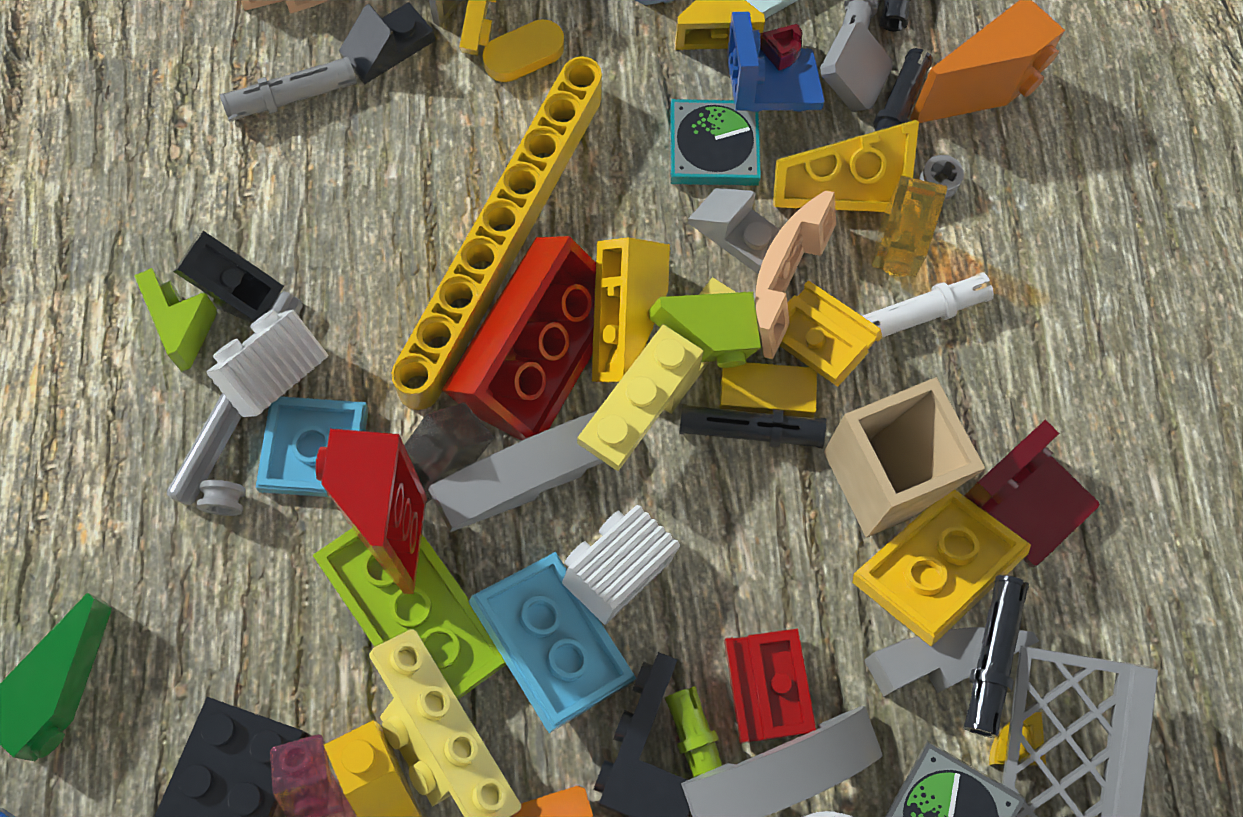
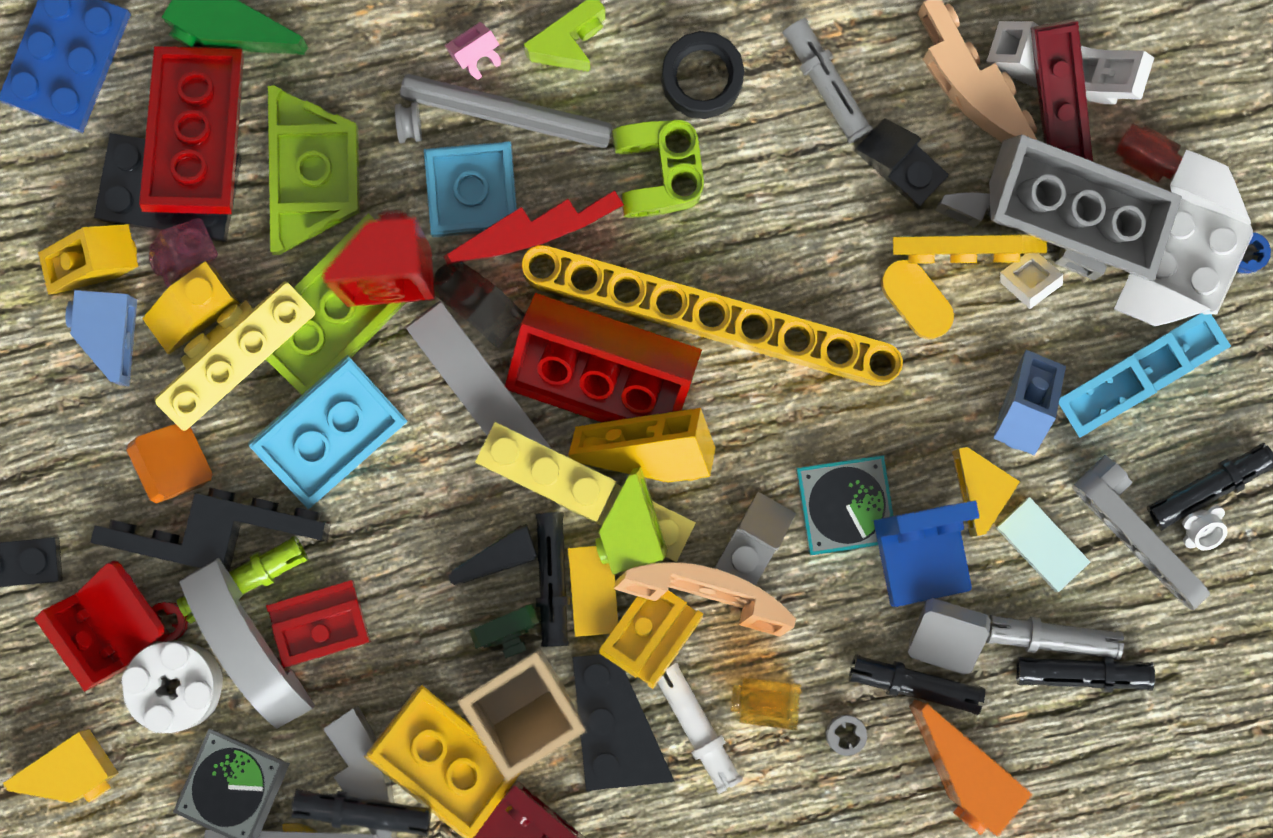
camera: 80 degrees right, 15 degrees up
(155, 416) = (472, 46): none -> bright pink tile
(163, 742) = (192, 130): none -> red plate
(228, 278) = (609, 78): black slope -> none
(237, 170) = (707, 42): none -> black tyre
(245, 616) = (309, 170): none -> lime wing
(267, 362) = (532, 133): white brick -> none
(335, 242) = (652, 137): none -> lime piece
(371, 387) = (519, 233): none -> red slope
(619, 563) = (401, 479): white brick -> none
(717, 464) = (508, 552): none -> black slope
(782, 45) = (964, 559): dark red tile -> none
(802, 475) = (506, 631): none -> dark green piece
(857, 170) = (825, 643): yellow wing -> none
(952, 365) = (617, 738): none -> black wing

